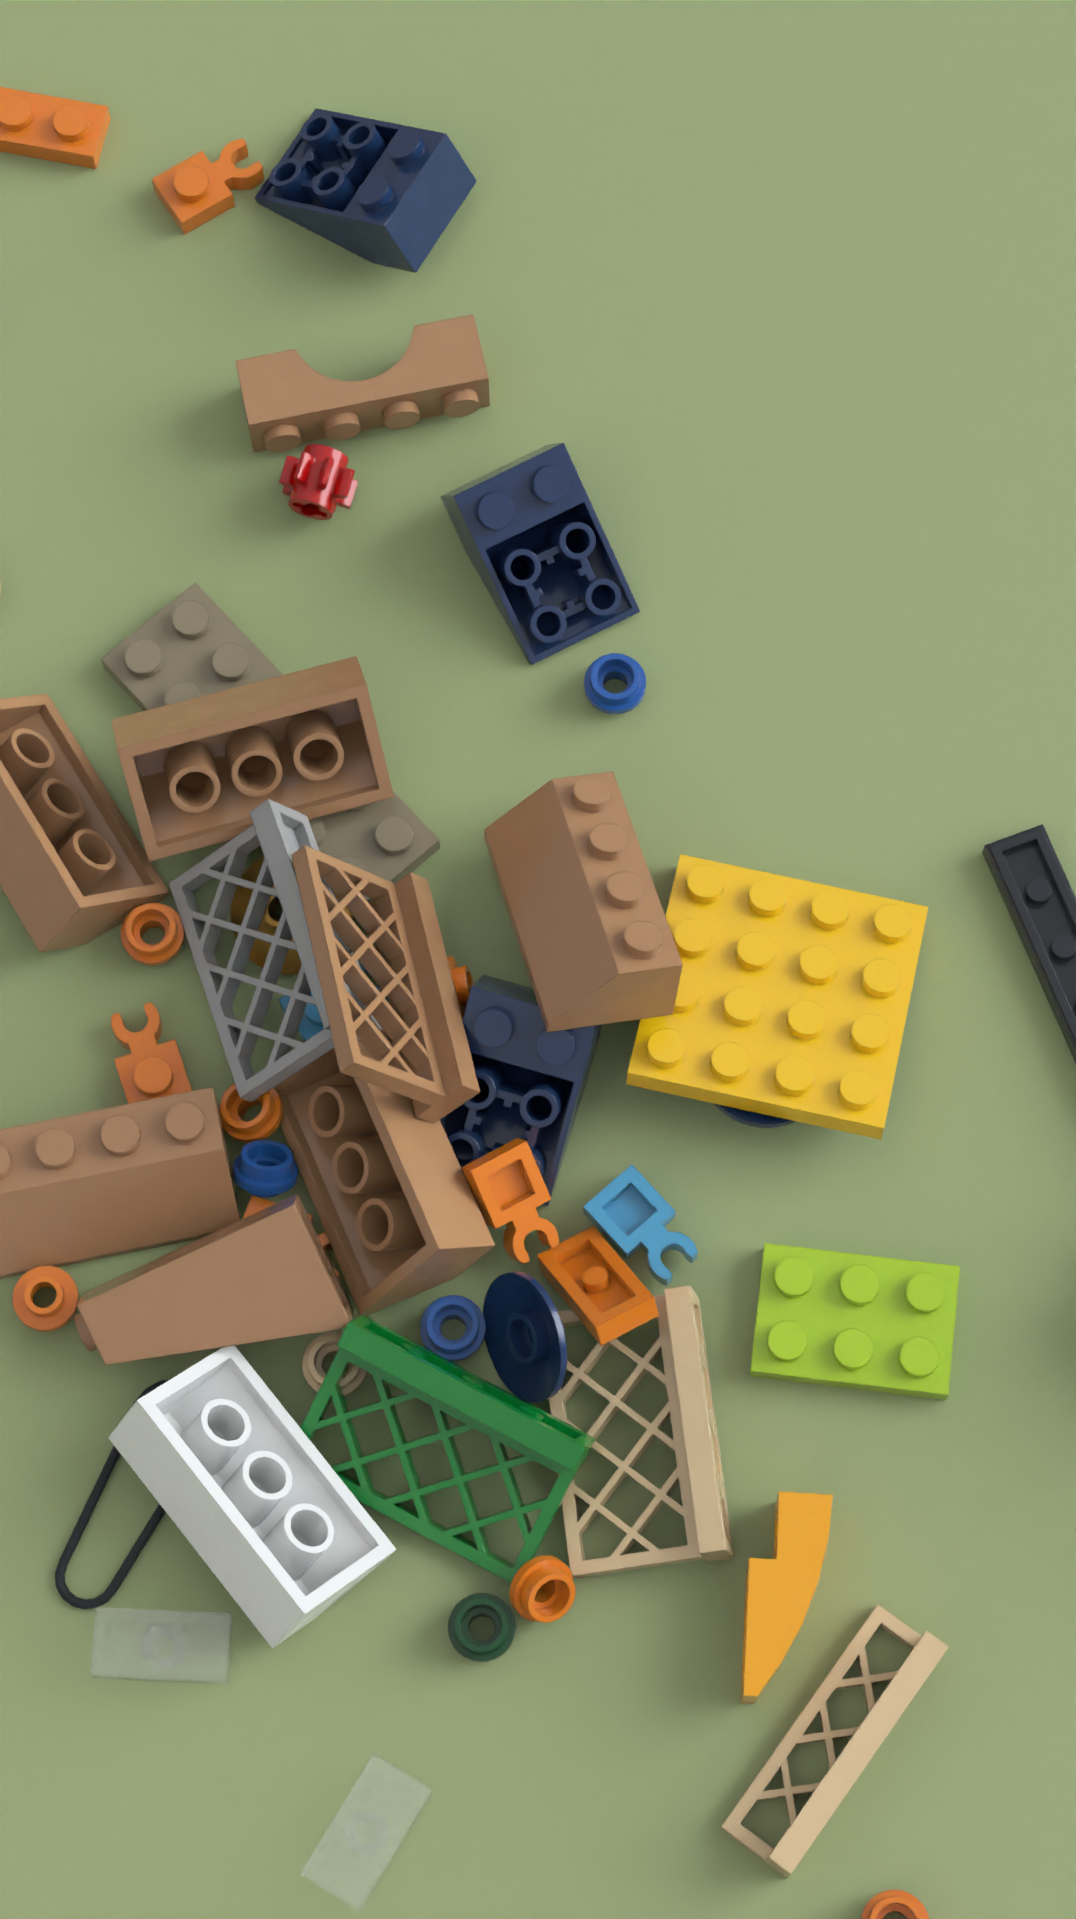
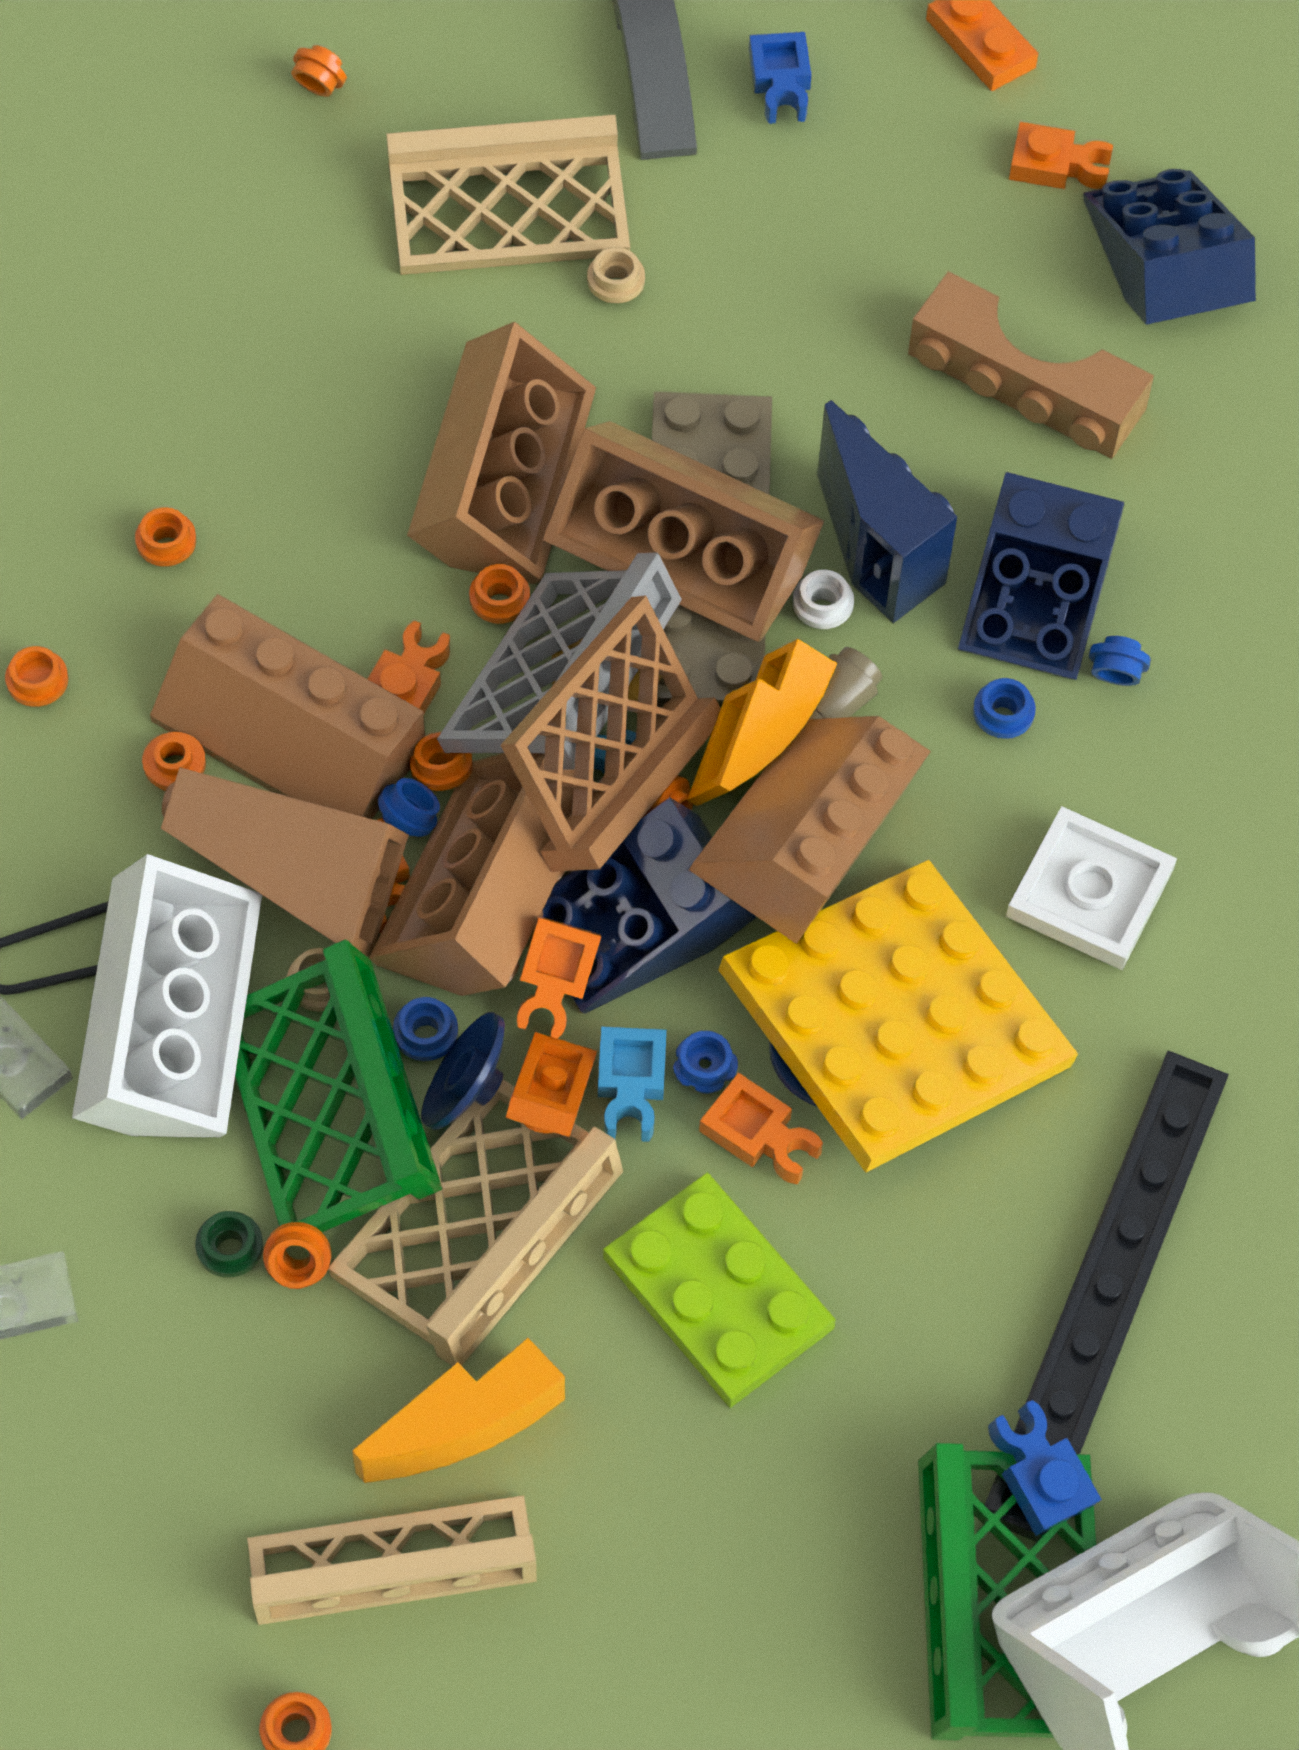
camera: 40 degrees right, 10 degrees down
(318, 481) = (927, 400): red gear -> none
(384, 612) = (884, 518): none -> dark blue slope
(405, 700) = (827, 586): none -> white plate
(463, 861) = (762, 718): none -> light orange slope
(485, 778) = (850, 685): none -> dark tan cone
(662, 569) = (1119, 660): none -> blue plate
(680, 1144) = (706, 1046): none -> blue plate
(758, 1177) = (754, 1124): none -> orange plate
(814, 769) = (1091, 888): none -> white plate

